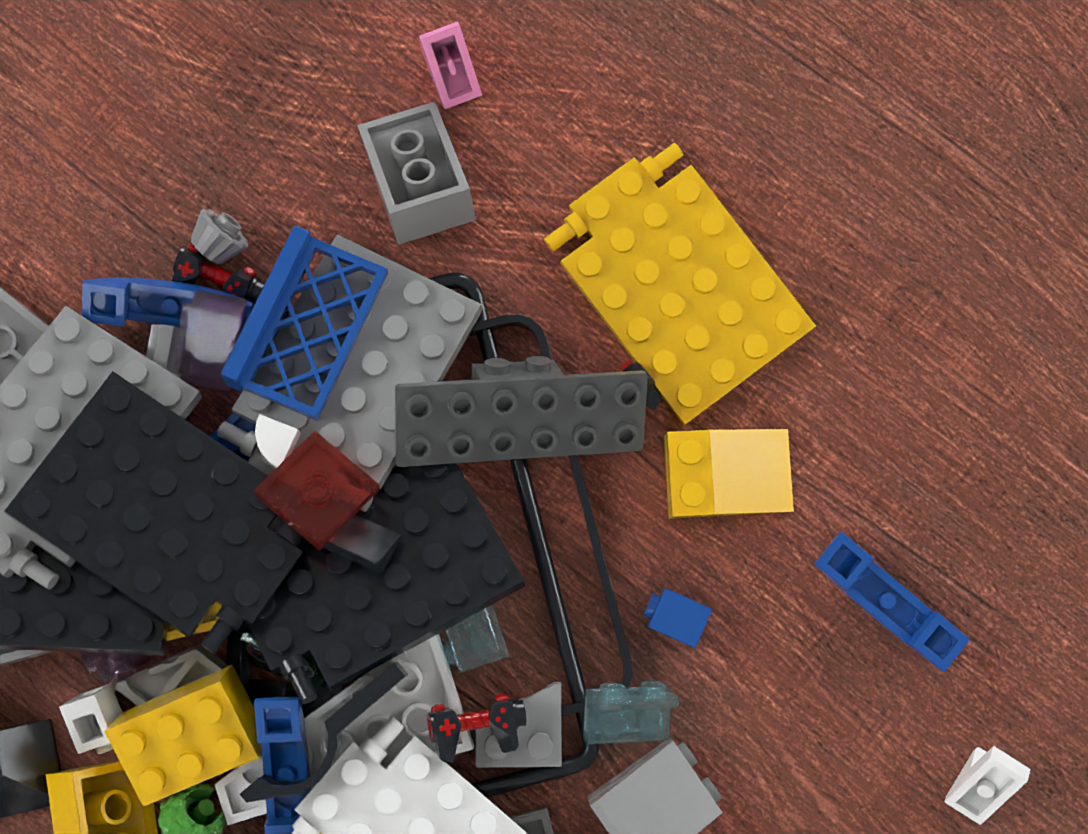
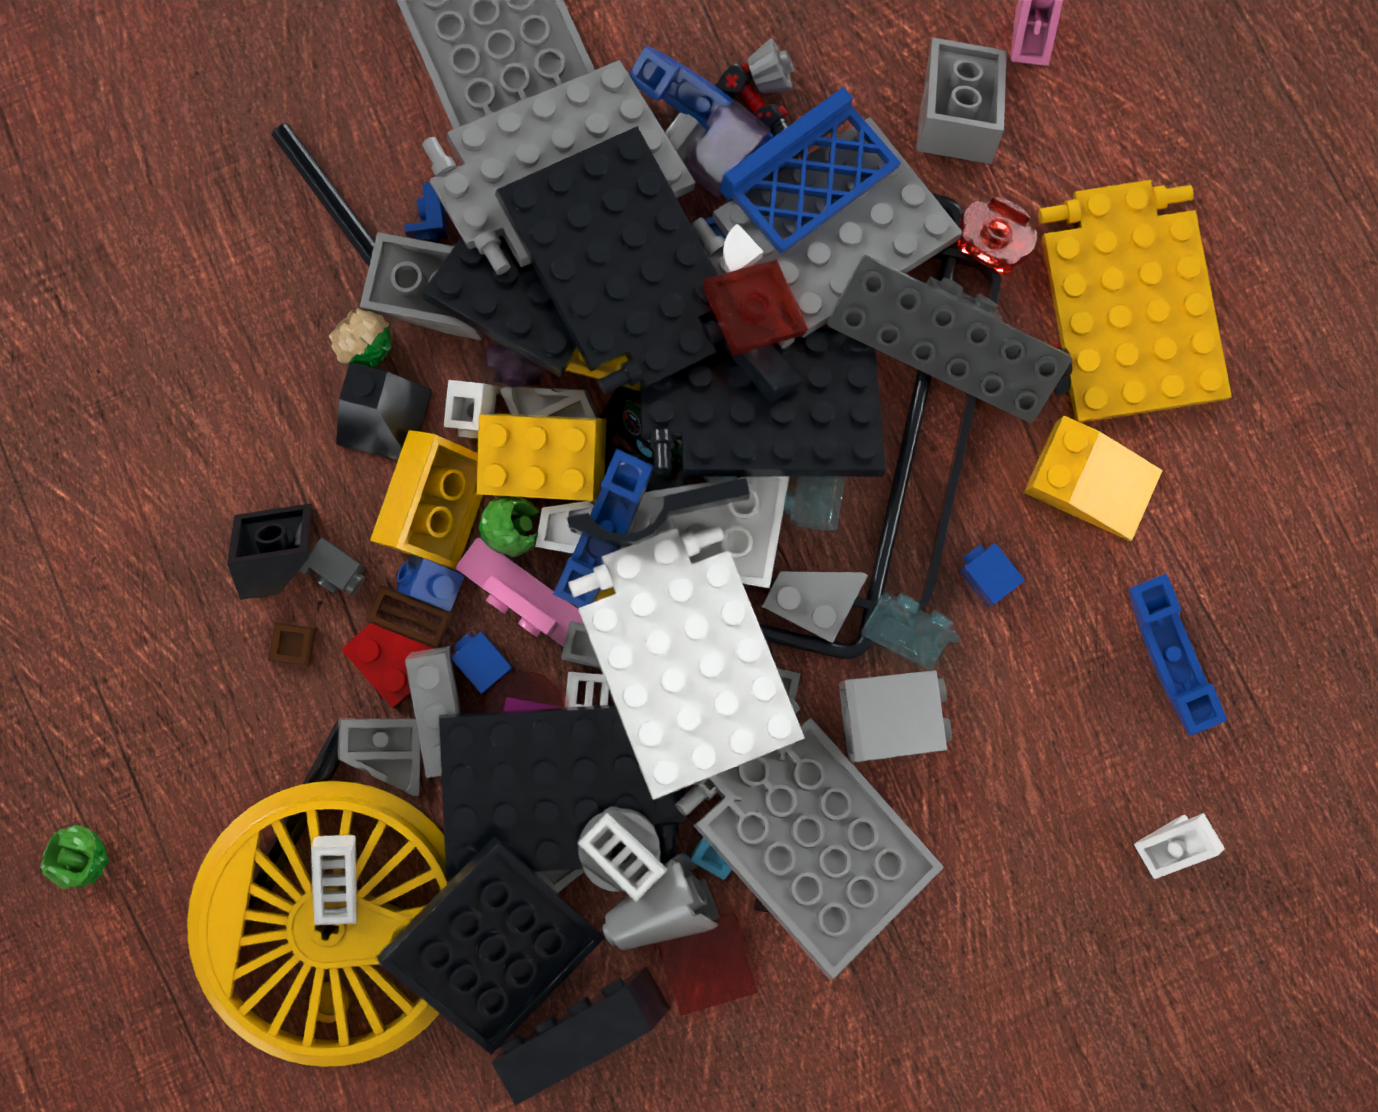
camera: 30 degrees right, 0 degrees up
(502, 716) = (807, 573): black piece -> none
(515, 305) = (991, 250): none -> clear red plate

